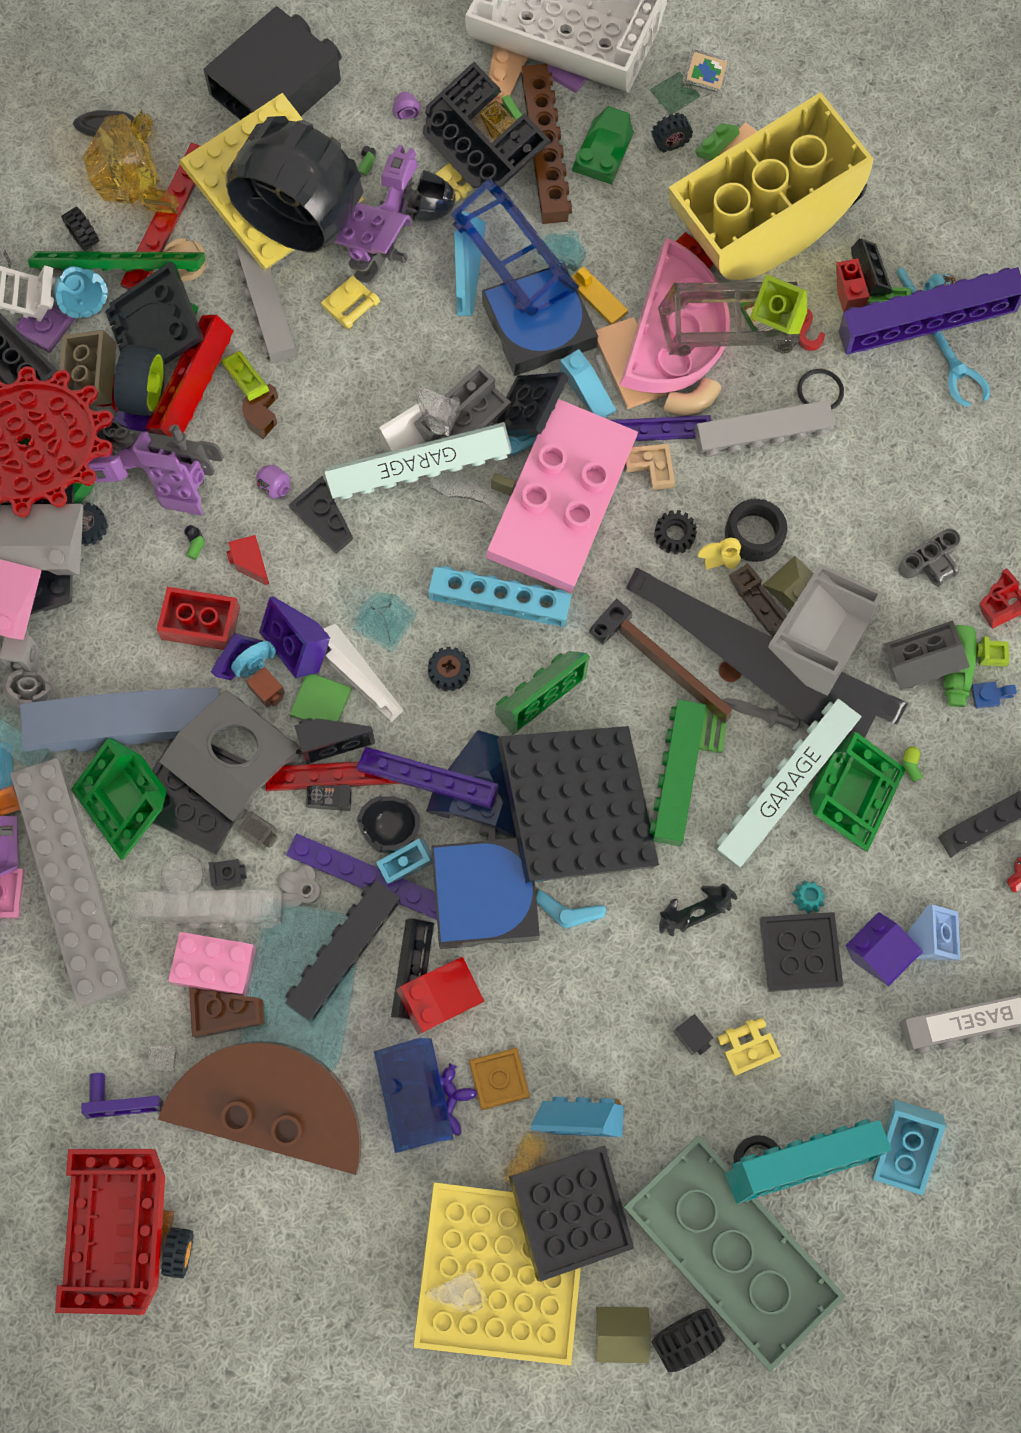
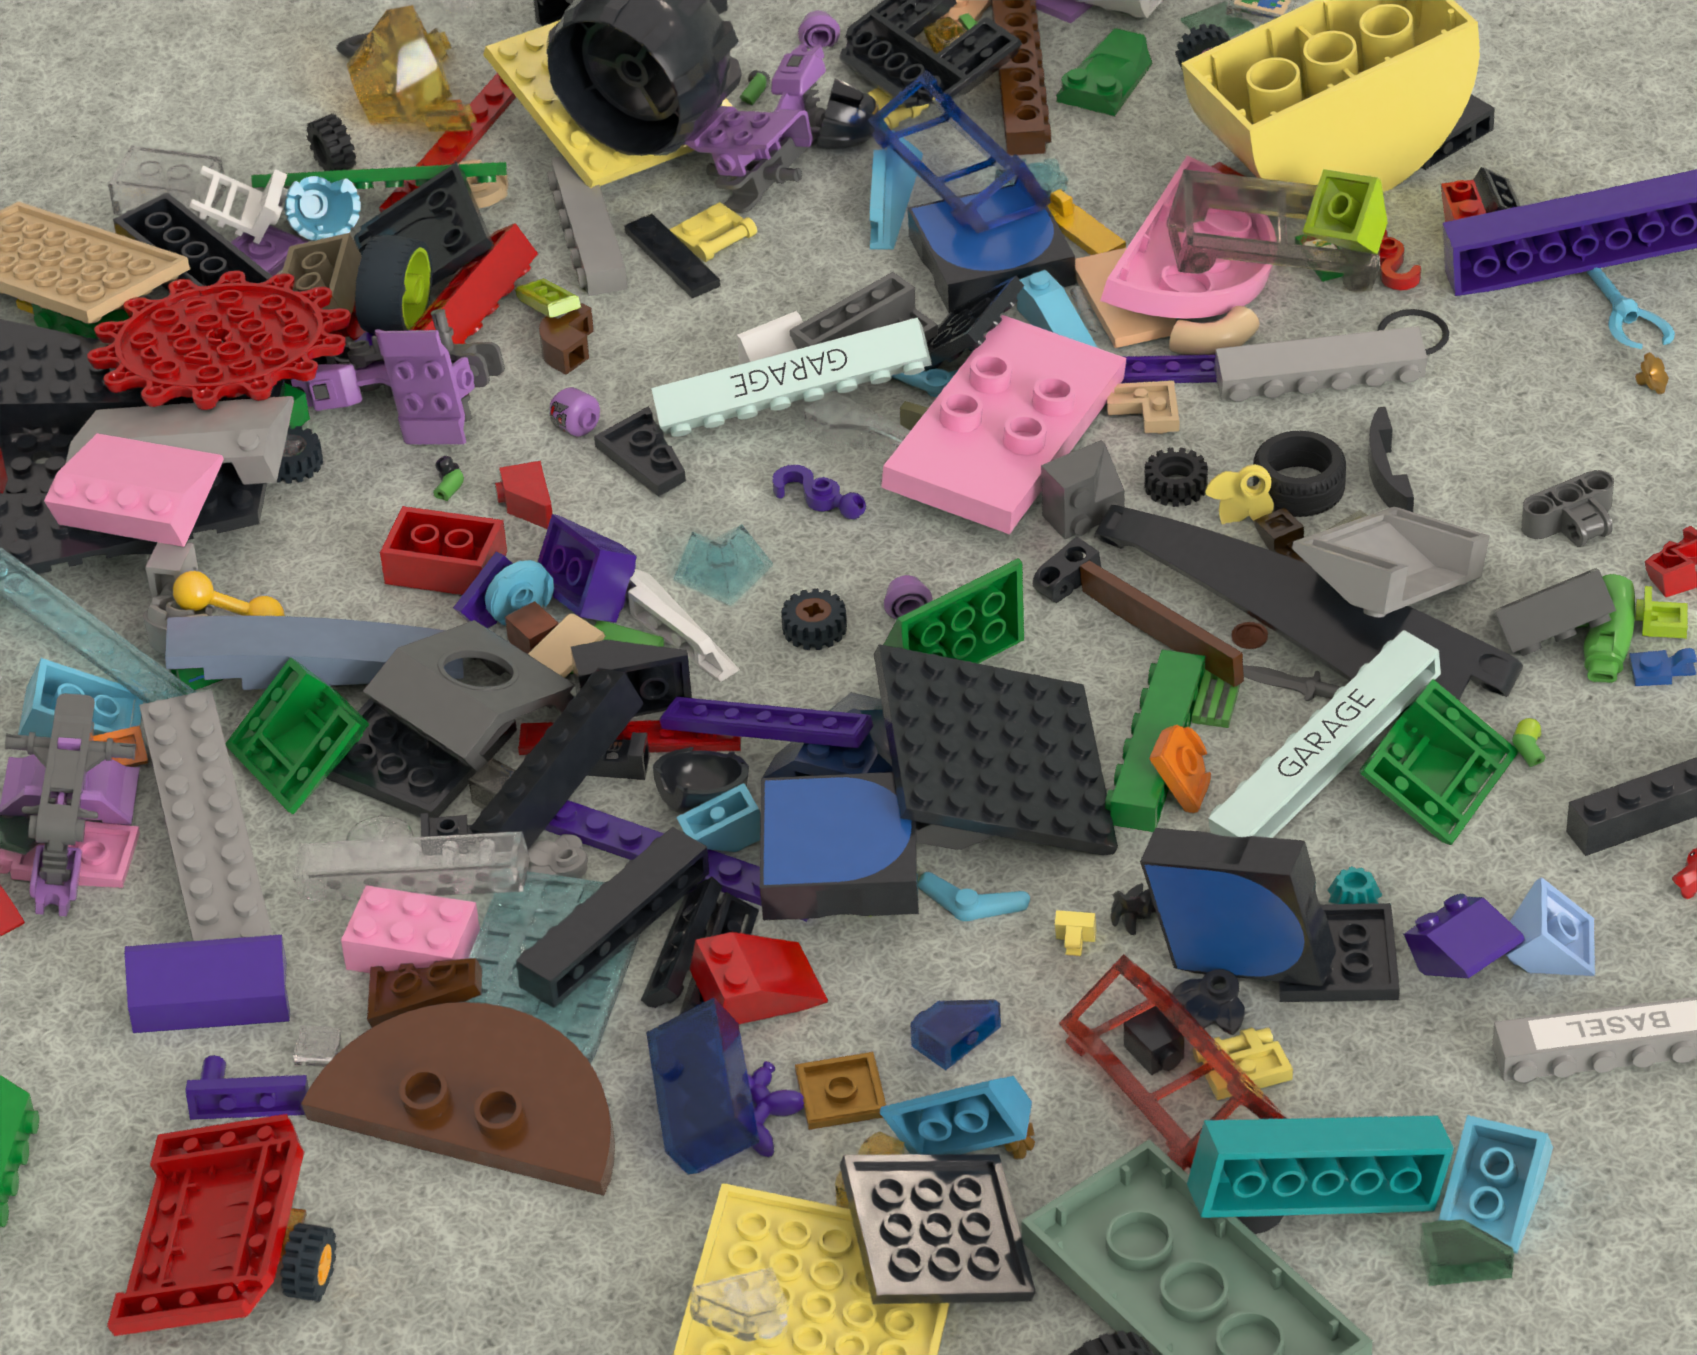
camera: 10 degrees right, 30 degrees down
(36, 674) = (195, 592): none -> yellow piece
(84, 1019) = (206, 983): none -> dark purple slope
(288, 704) = (555, 648): none -> tan slope
(294, 820) = (562, 757): none -> black brick
(324, 326) = (672, 255): none -> black plate
(388, 962) = (677, 952): none -> black plate
(437, 410) = (825, 310): clear slope -> none
(443, 552) = (819, 494): none -> dark purple piece
(508, 648) = (905, 595): none -> medium lavender cone
(509, 605) = (898, 540): medium azure brick -> none
(565, 1030) = (954, 1029): none -> clear blue slope
(617, 555) = (1080, 489): none -> dark grey slope
(637, 940) = (1074, 929): none -> light yellow tile
(696, 800) = (1181, 765): none -> orange tile
(722, 999) = (1213, 1005): none -> black plate
(747, 953) = (1239, 905): none -> tile
(763, 1105) = (1239, 1084): none -> clear red windscreen
(818, 544) = (1393, 489): none -> black slope
(890, 1203) = (1463, 1253): none -> clear green slope
(978, 430) = (1652, 373): none -> pearl gold plant

